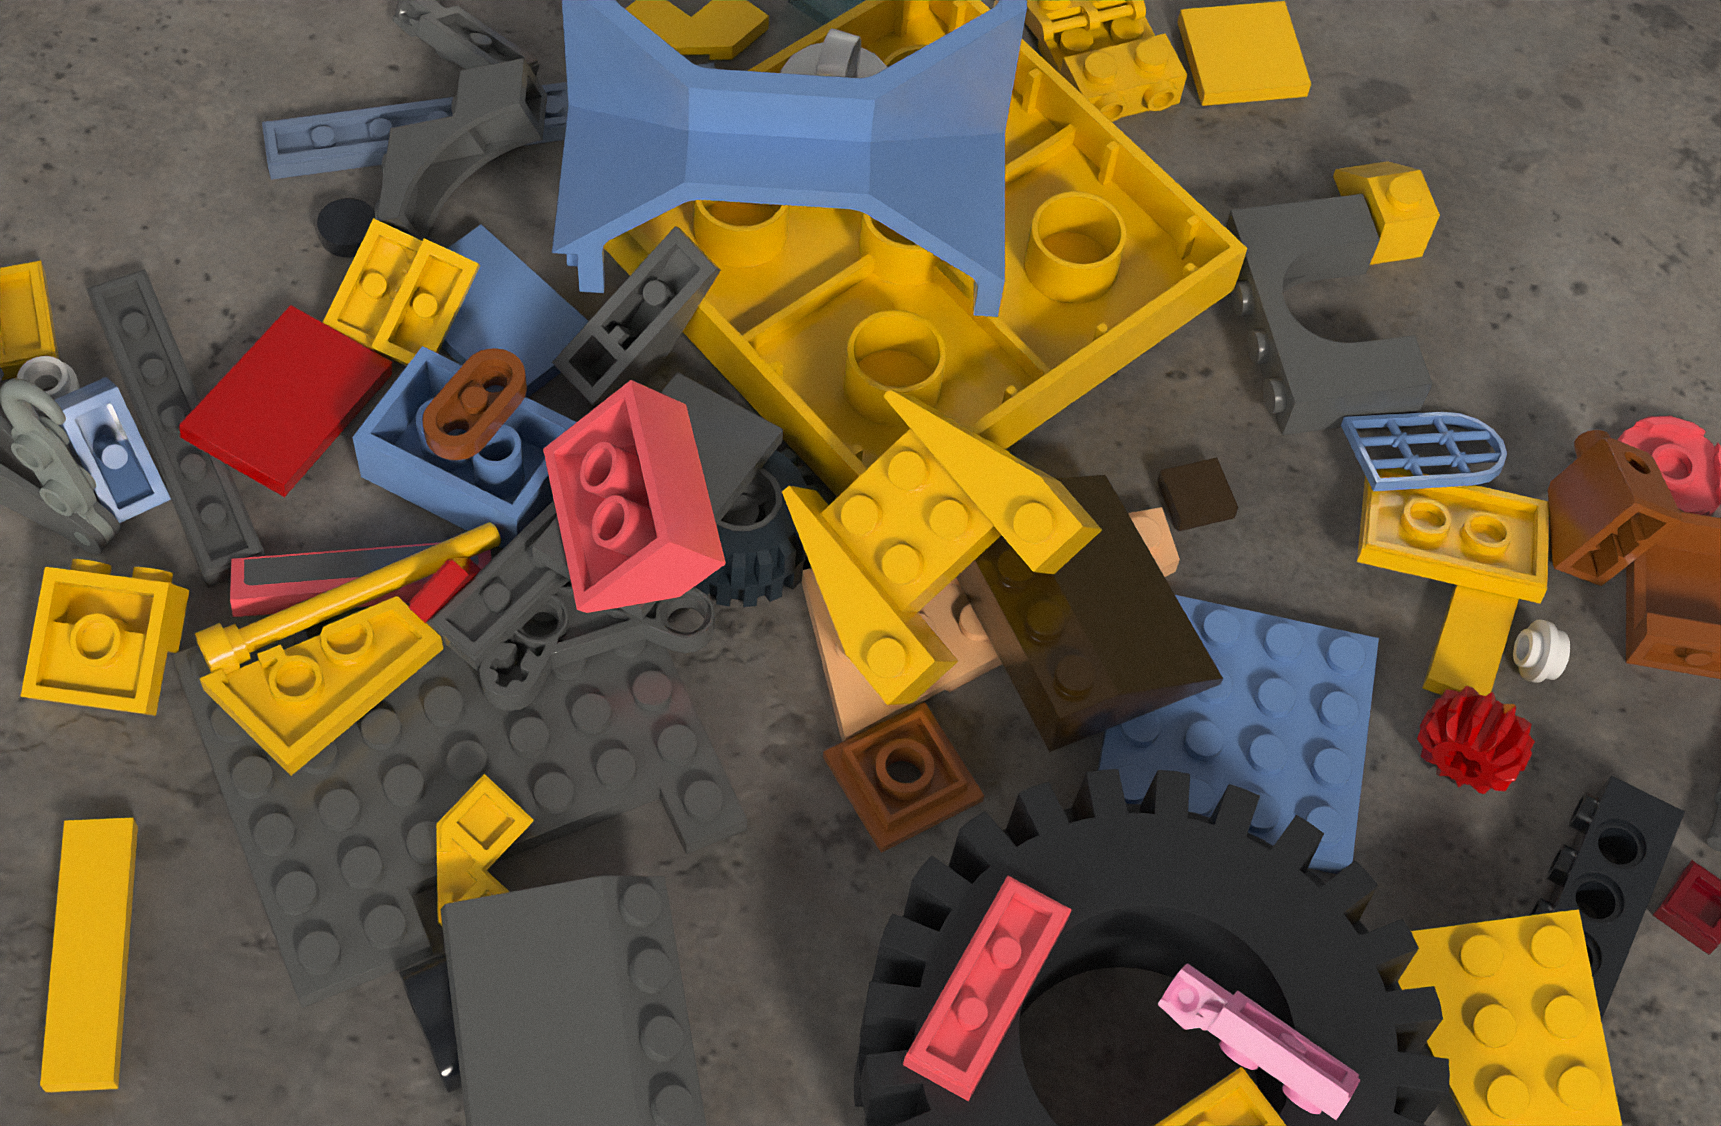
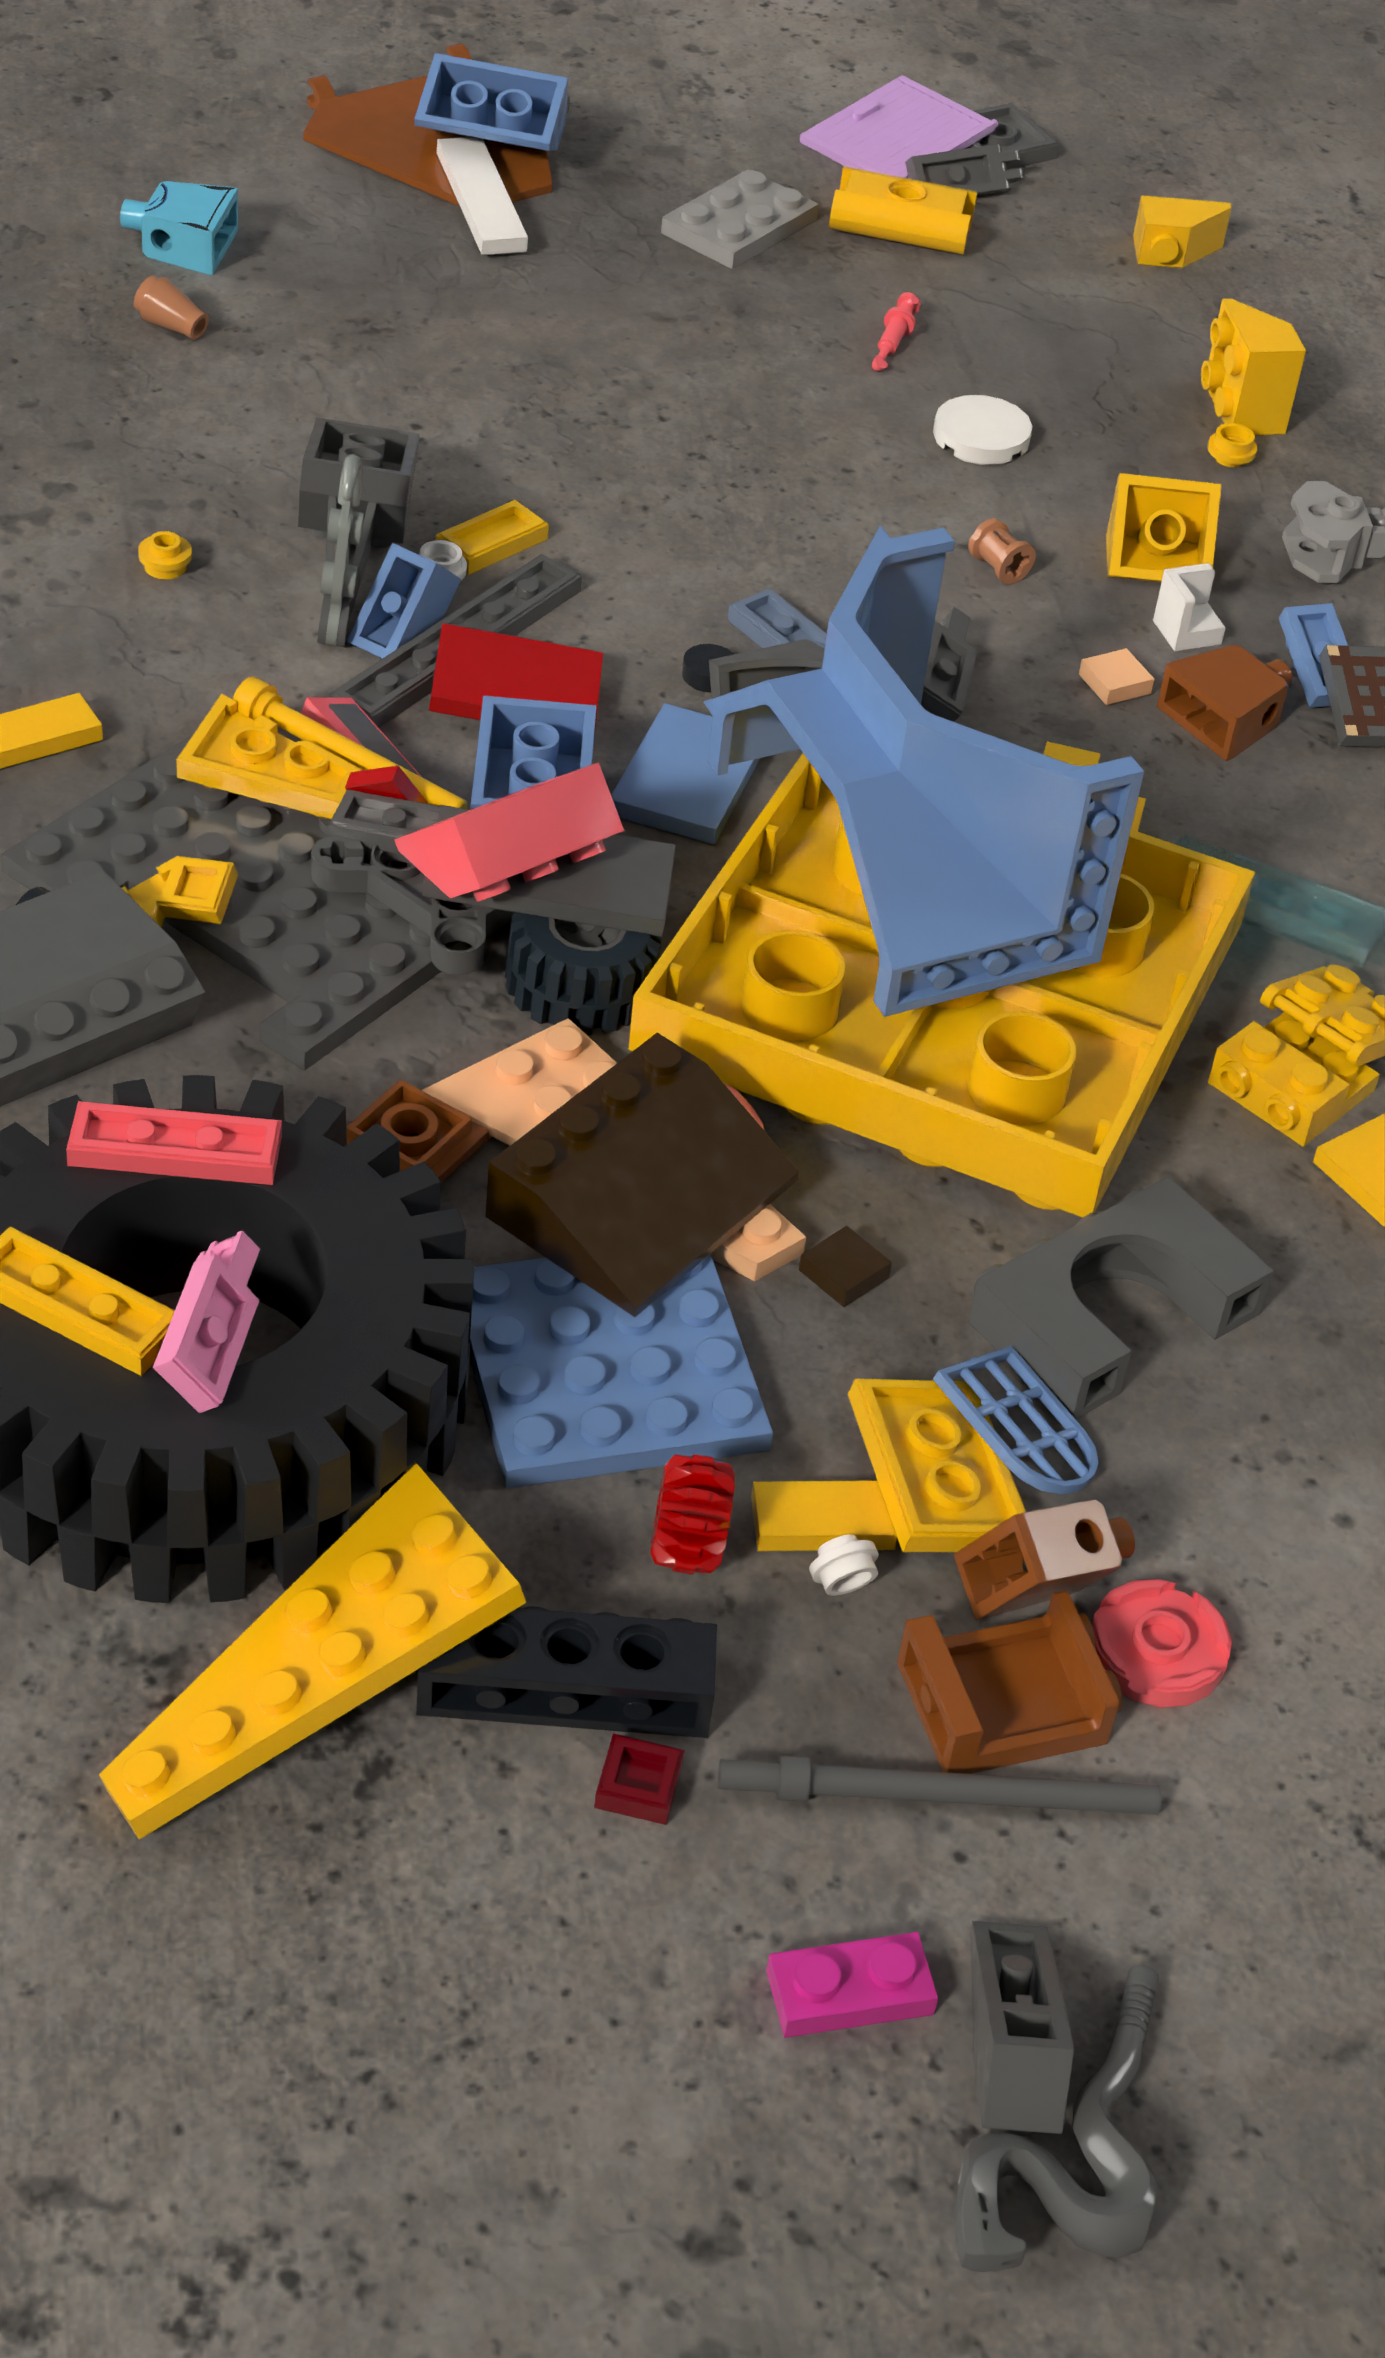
camera: 65 degrees right, 15 degrees down
(104, 637) = (238, 645): yellow plate -> none
(400, 293) = (653, 700): yellow slope -> none
(469, 407) = (552, 736): dark orange plate -> none
(640, 320) = (706, 812): dark grey slope -> none
(914, 529) = (593, 1006): yellow wedge -> none
(1398, 206) = (1289, 1318): yellow slope -> none

